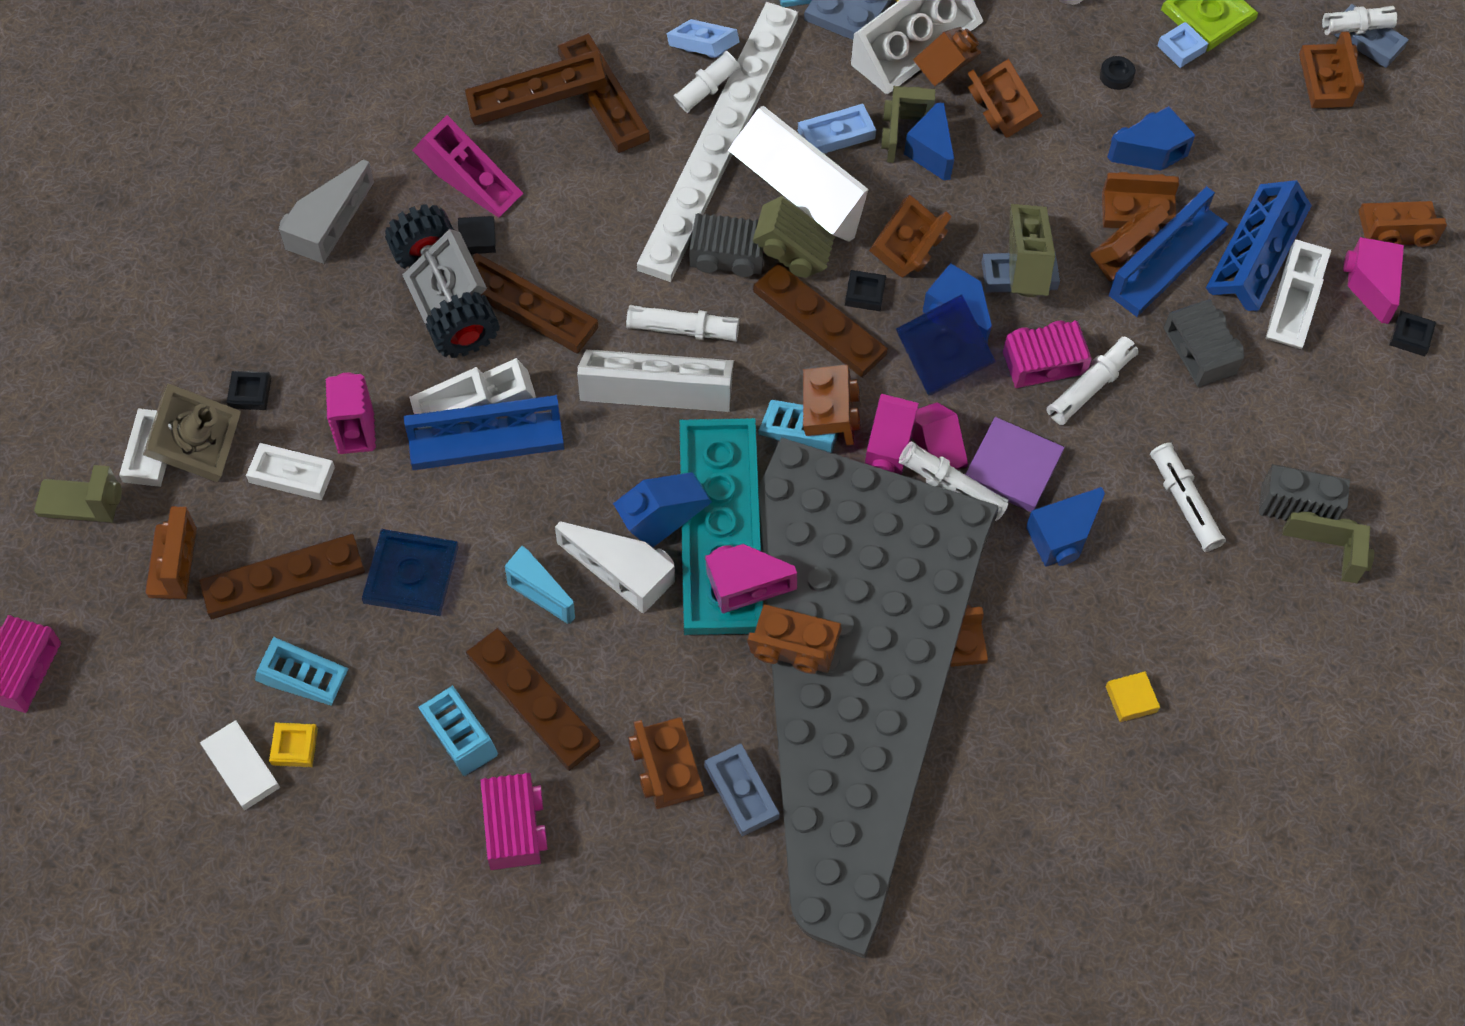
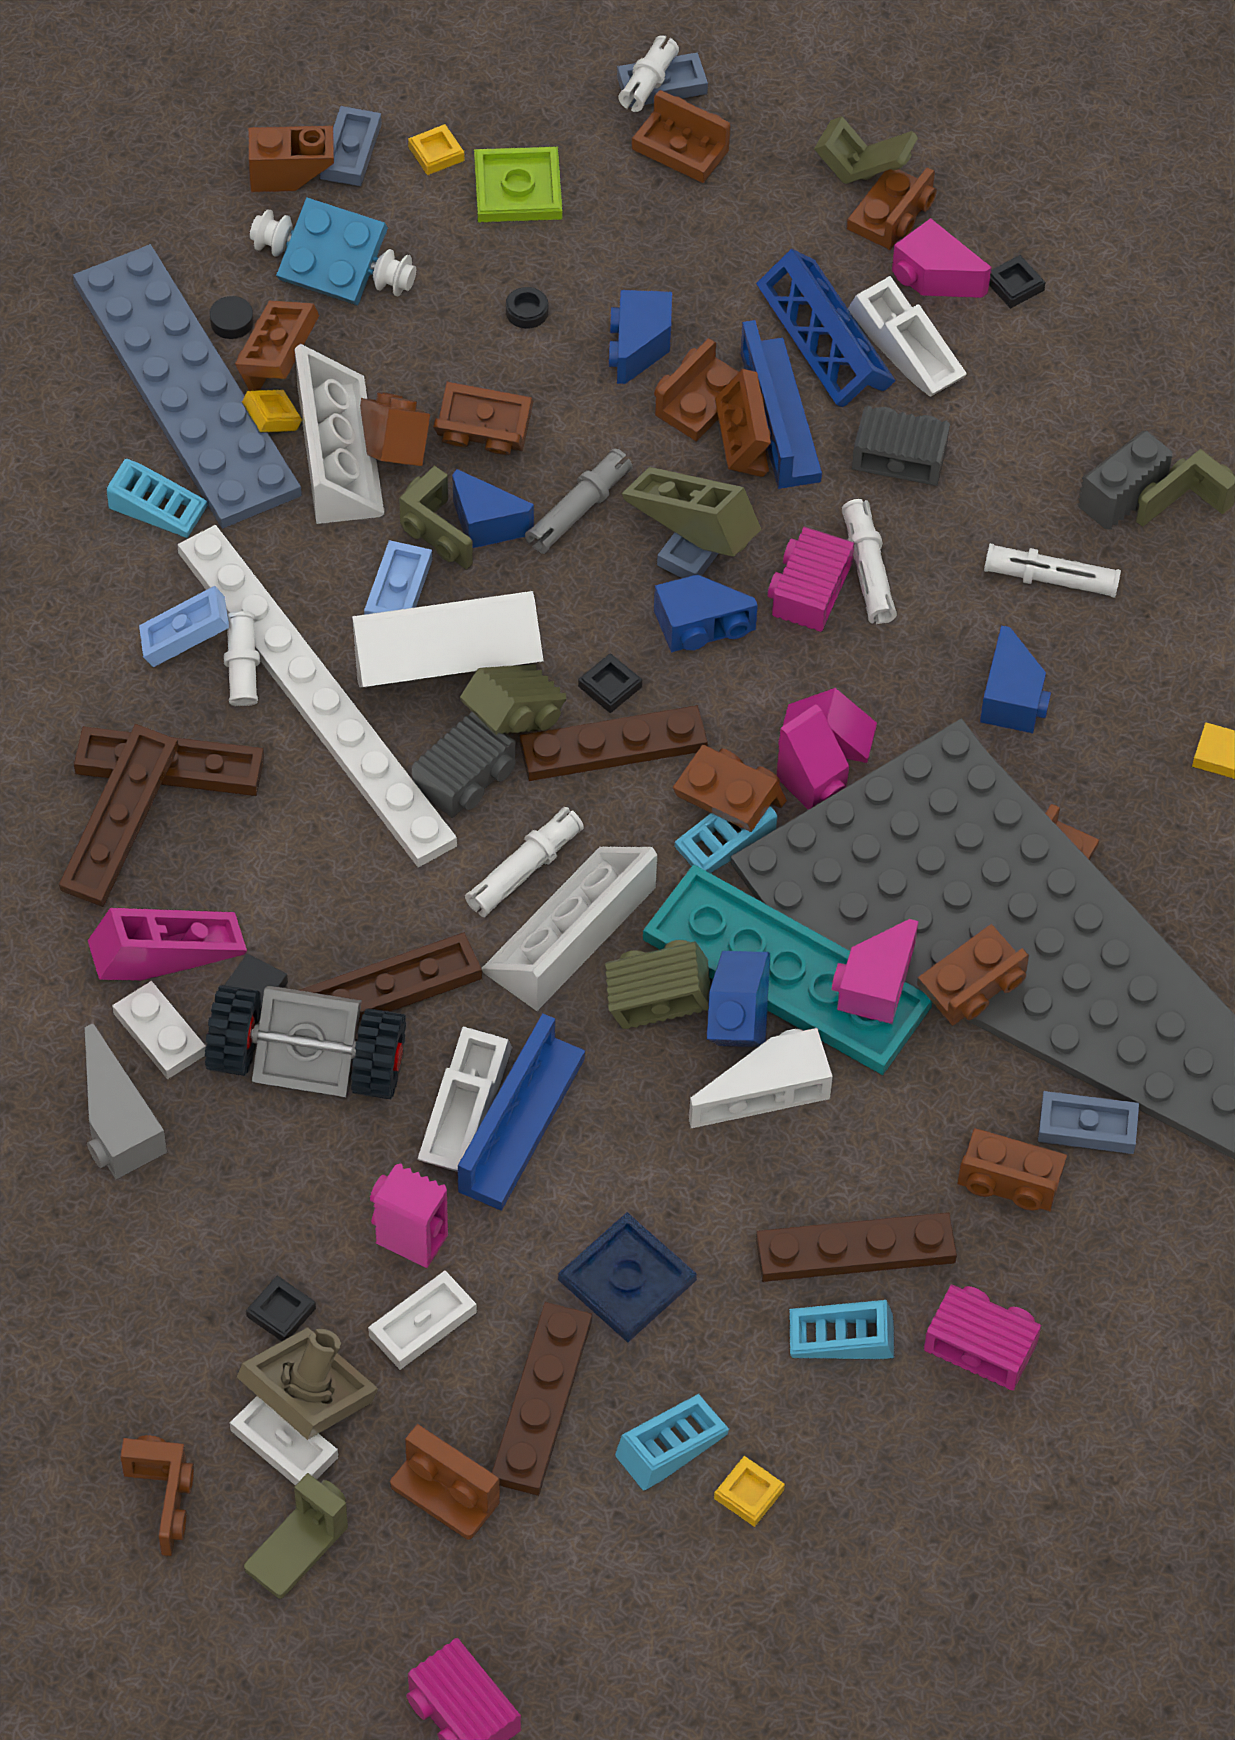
camera: 55 degrees left, 5 degrees down
(73, 407) = (160, 1460): none -> dark orange bracket
(240, 765) = (737, 1552): white tile -> none
(409, 191) = (159, 1029): none -> white plate
(535, 583) = (739, 1164): medium azure slope -> none
(639, 449) = (658, 984): none -> olive brick
(909, 237) = (586, 602): dark orange bracket -> none
(940, 473) = (888, 743): white pin -> none
(945, 345) = (741, 651): clear blue tile -> none
(990, 187) = (591, 489): none -> light grey pin
(1015, 463) = (907, 686): medium lavender tile -> none
(1182, 44) = (543, 232): light blue plate -> none
(1416, 173) = (853, 159): none -> olive bracket

